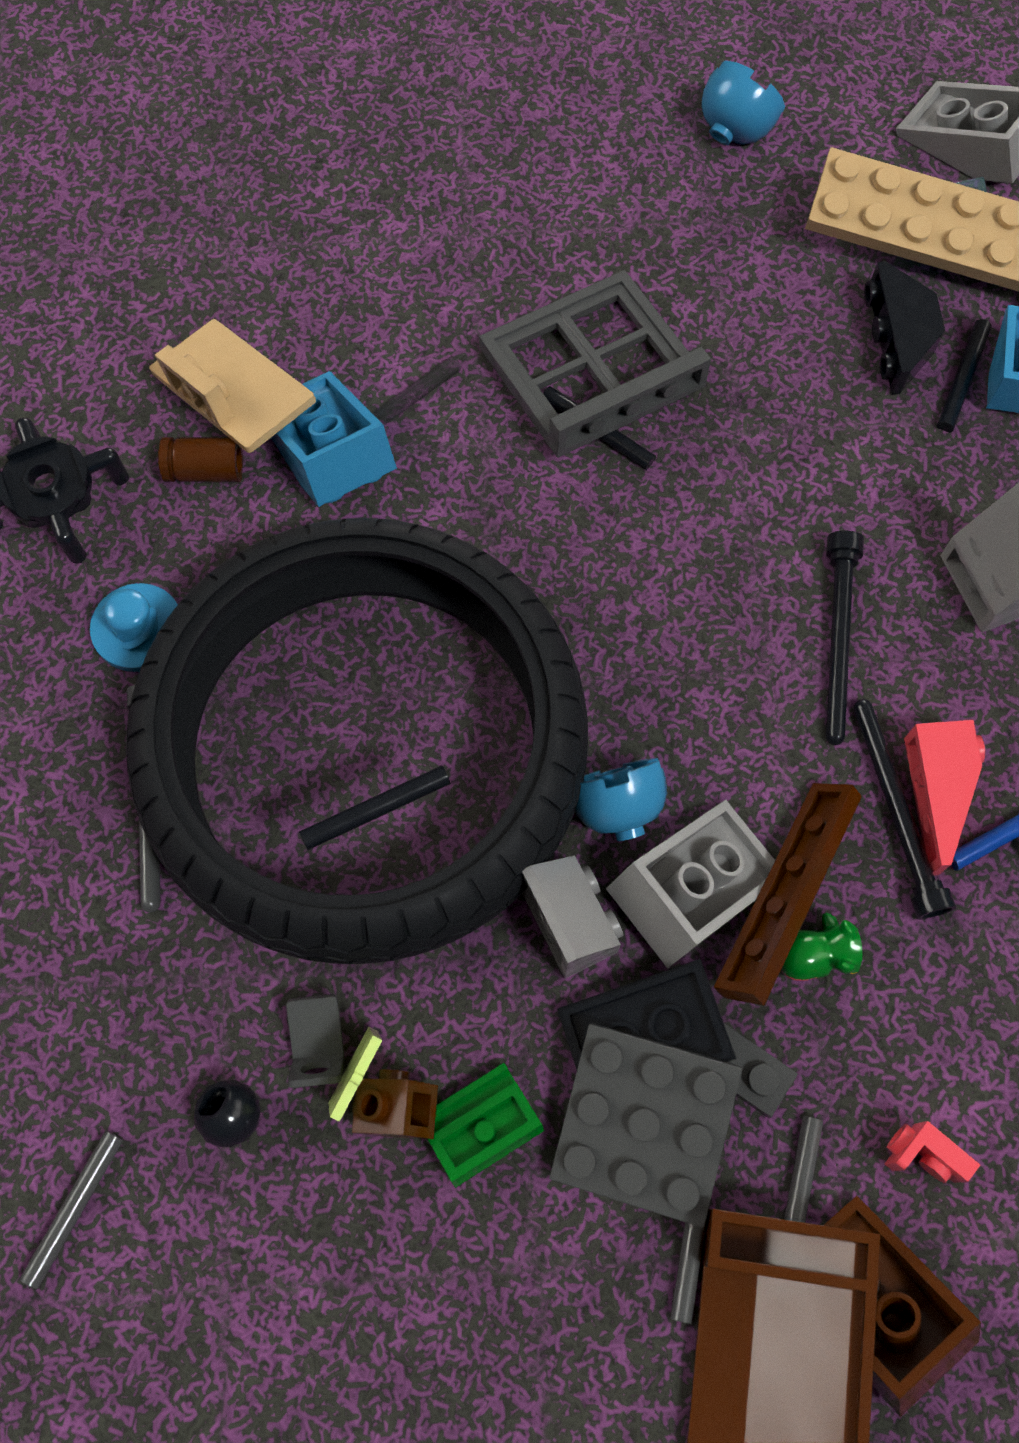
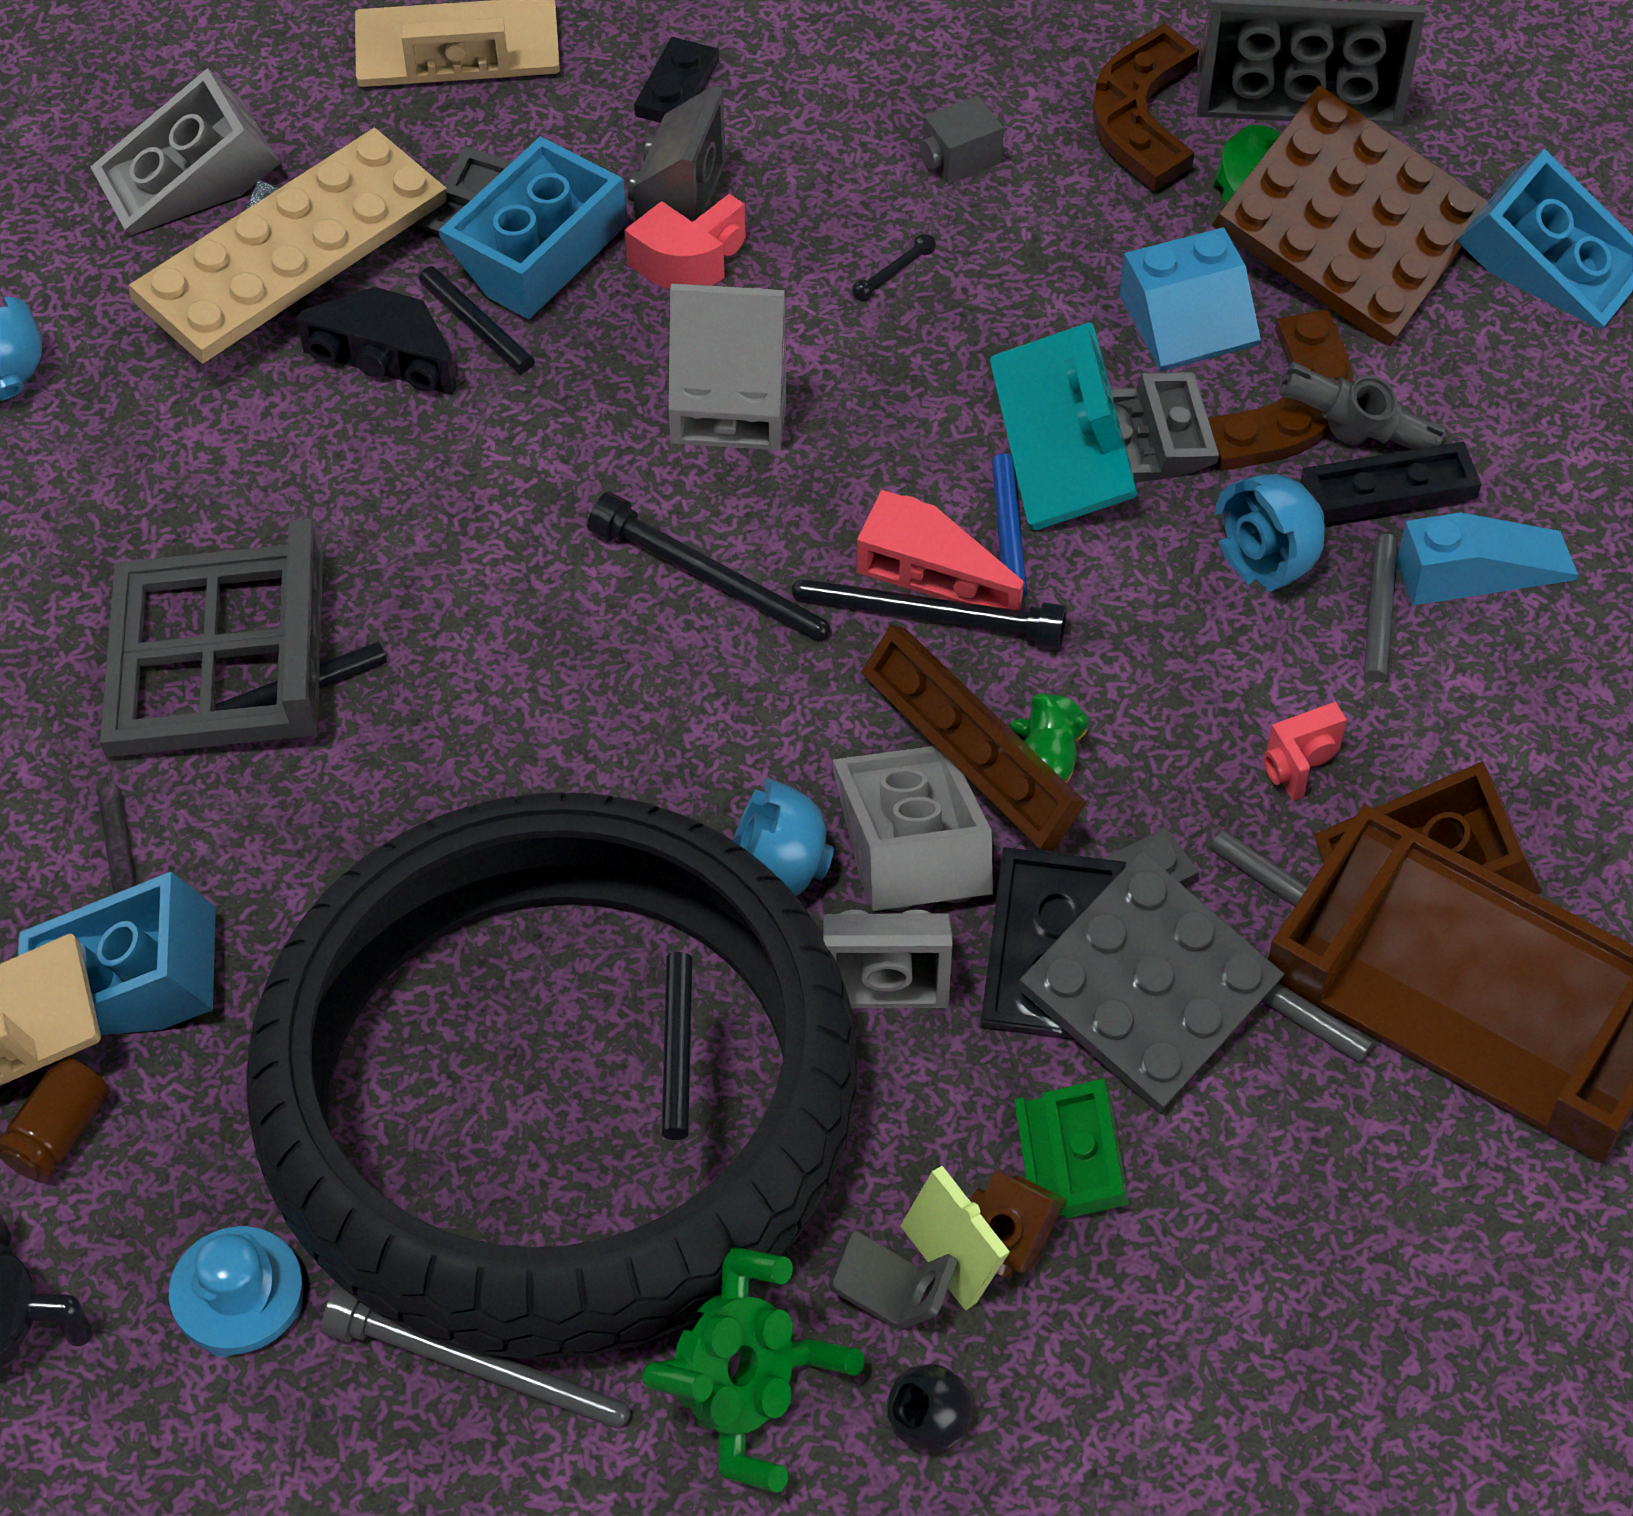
camera: 65 degrees left, 15 degrees down
(190, 988) = (762, 1380): none -> green plate

